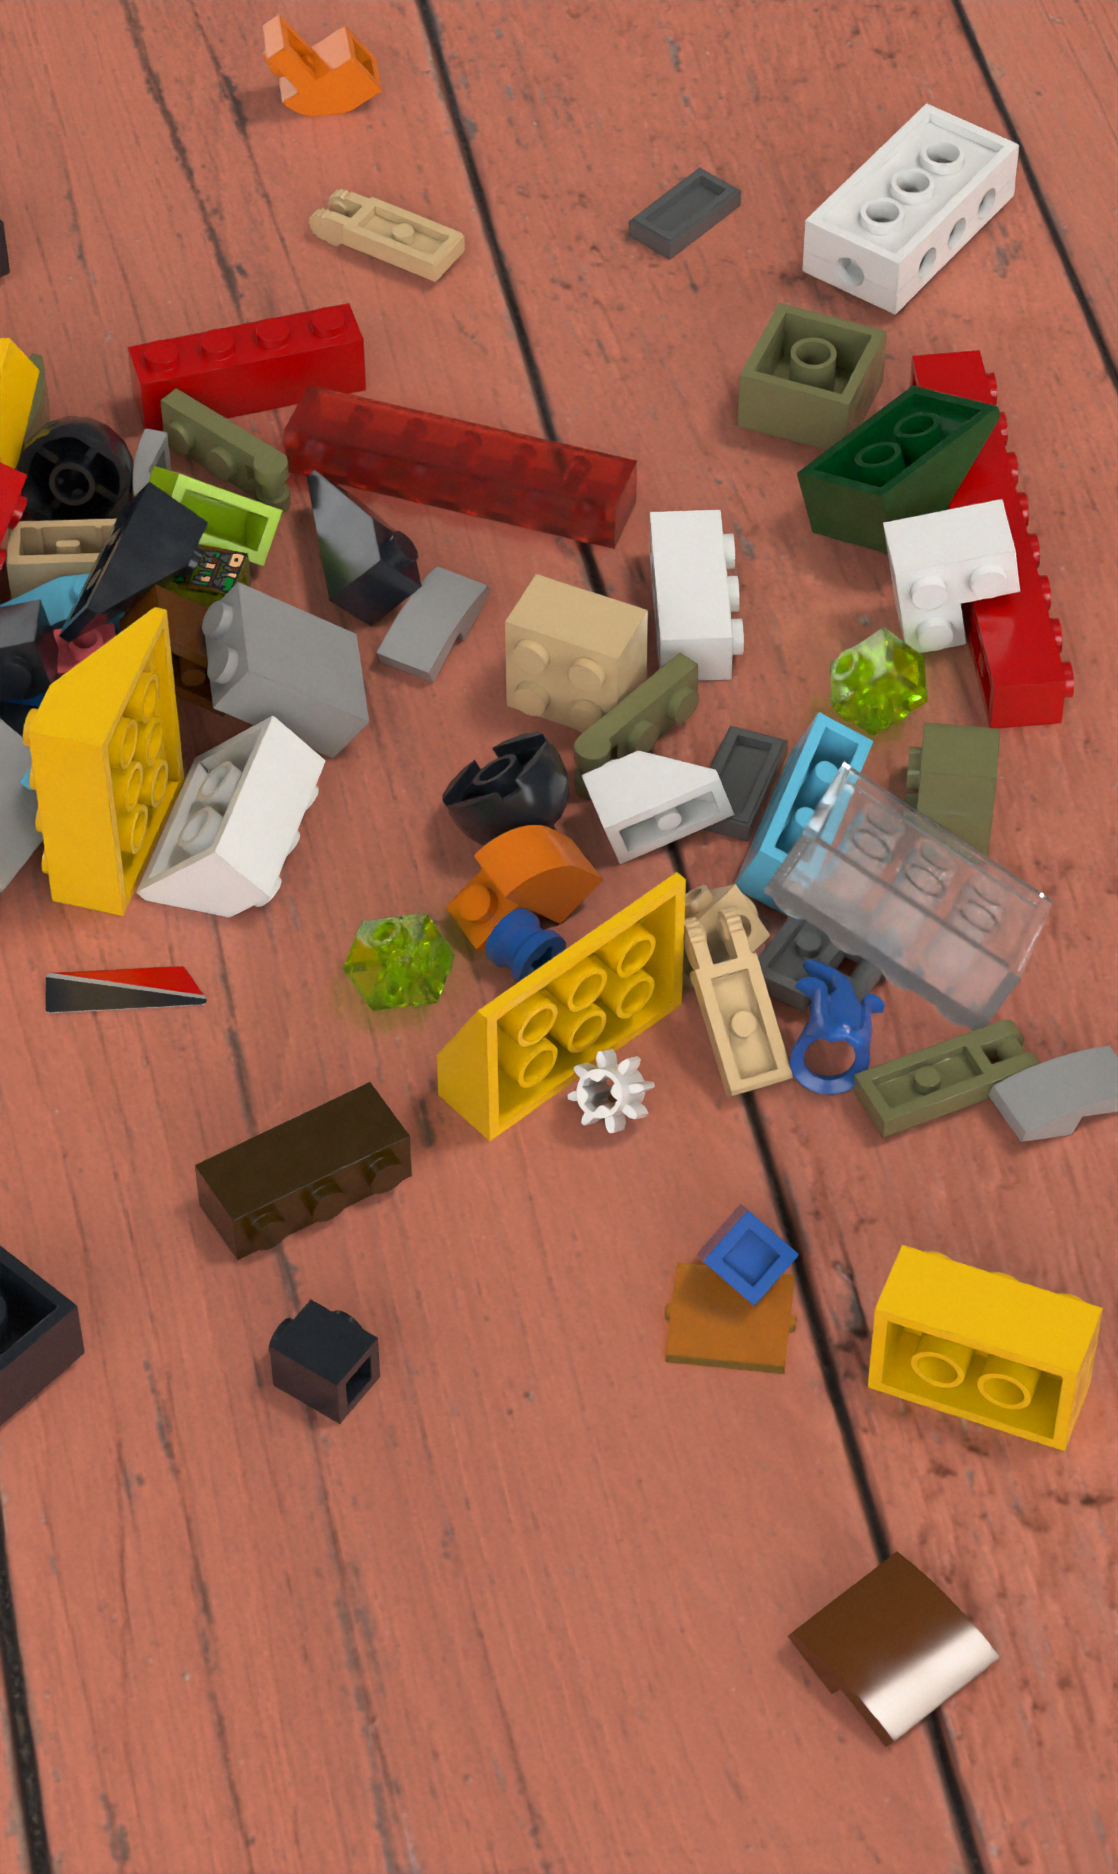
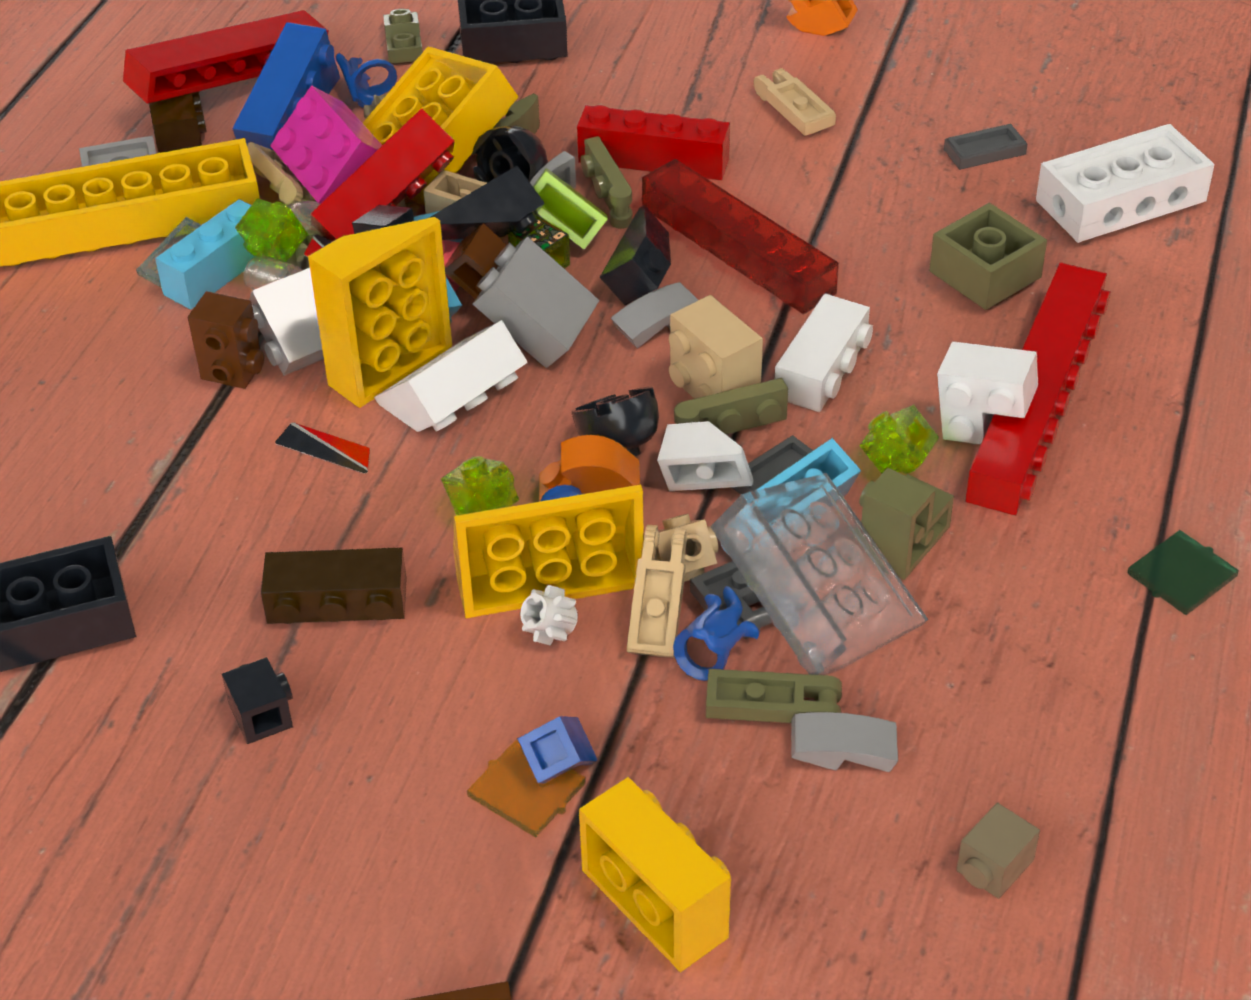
camera: 30 degrees right, 5 degrees down
(895, 465) = (1002, 315): dark green slope -> none

